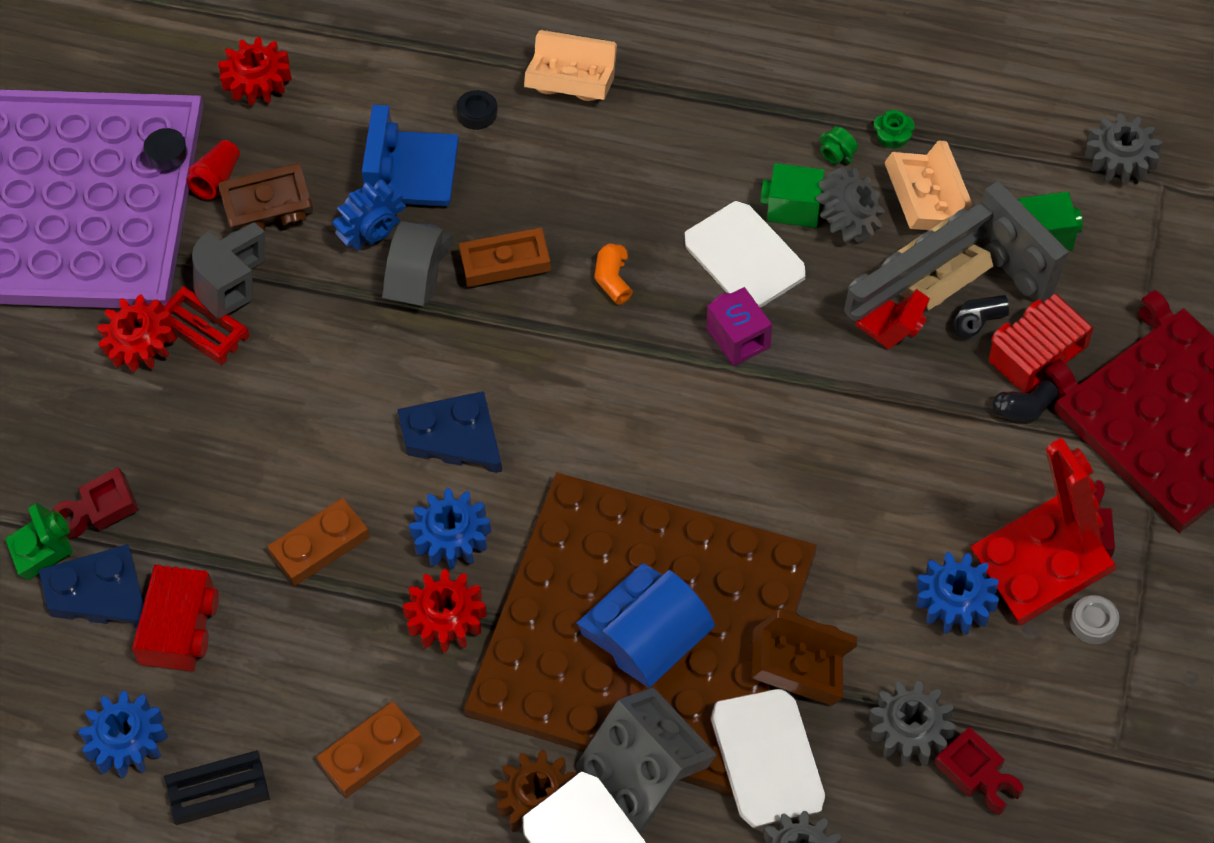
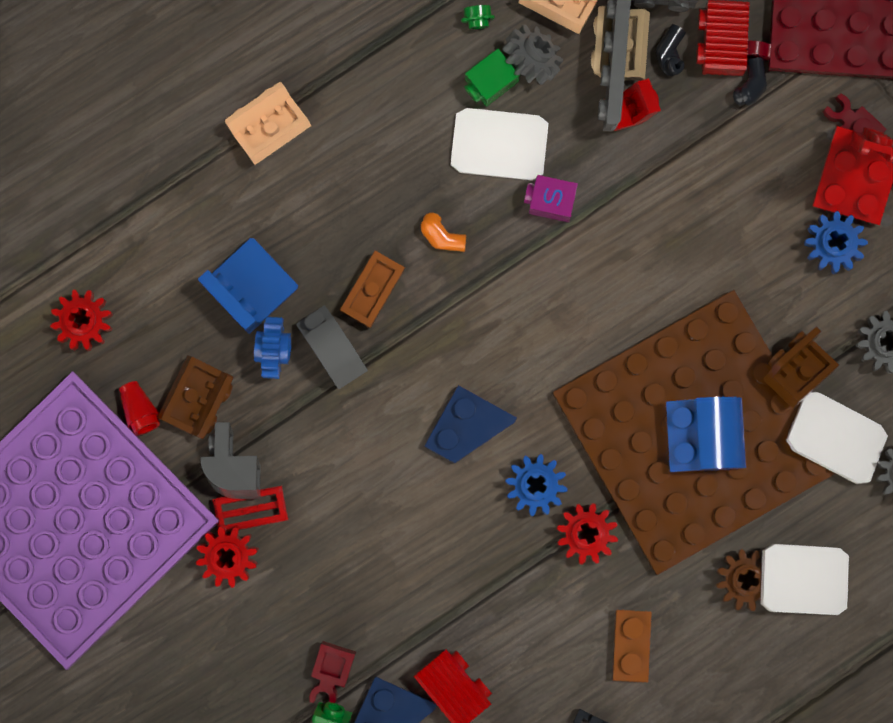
camera: 45 degrees left, 25 degrees up
(165, 149) = (101, 429): black tile -> none
(318, 541) = (471, 564): dark orange plate -> none
(477, 109) = (238, 205): black tile -> none
(644, 754) = (781, 505): dark grey bracket -> none

